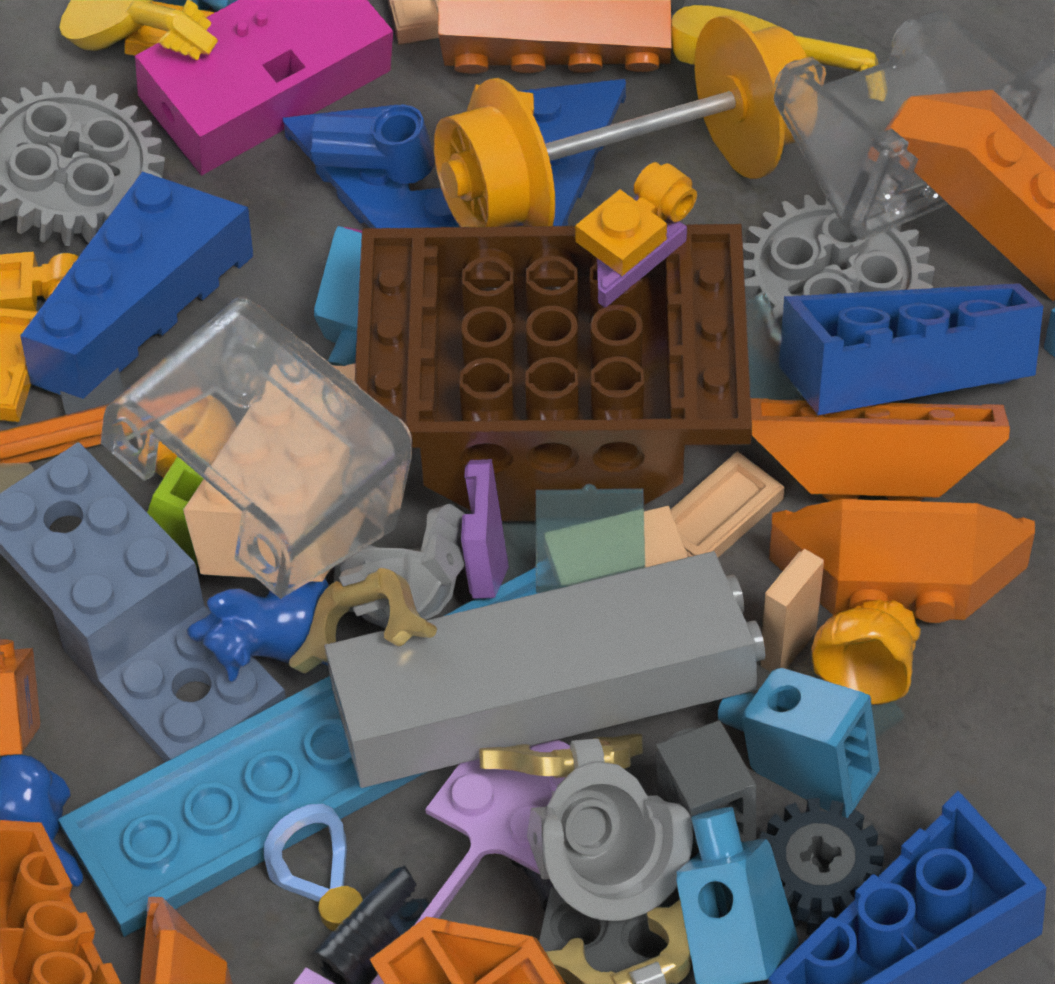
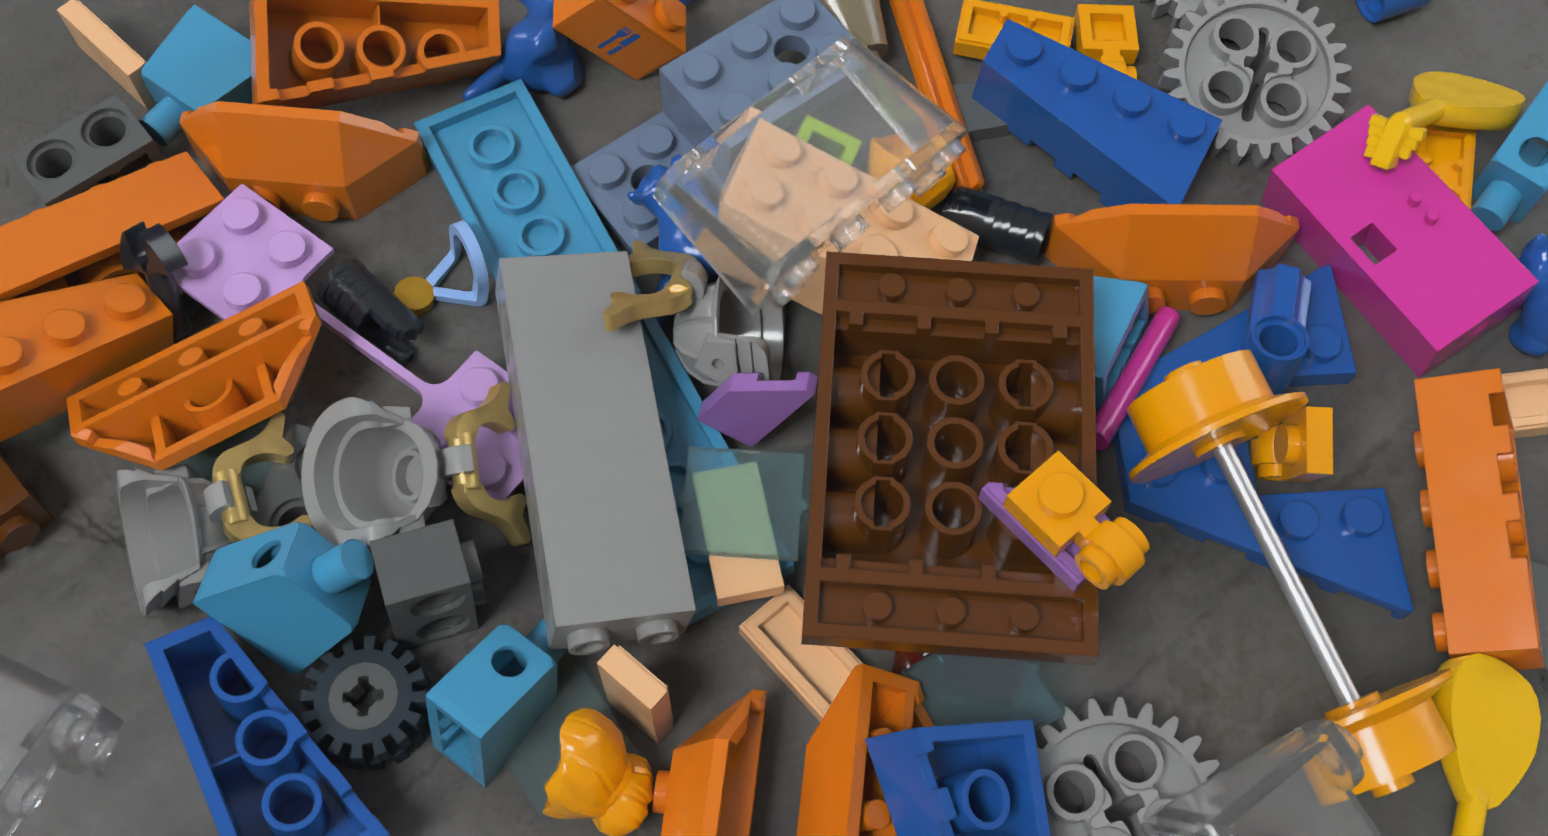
camera: 90 degrees right, 10 degrees up
(286, 224) = (1186, 253): none -> orange wedge

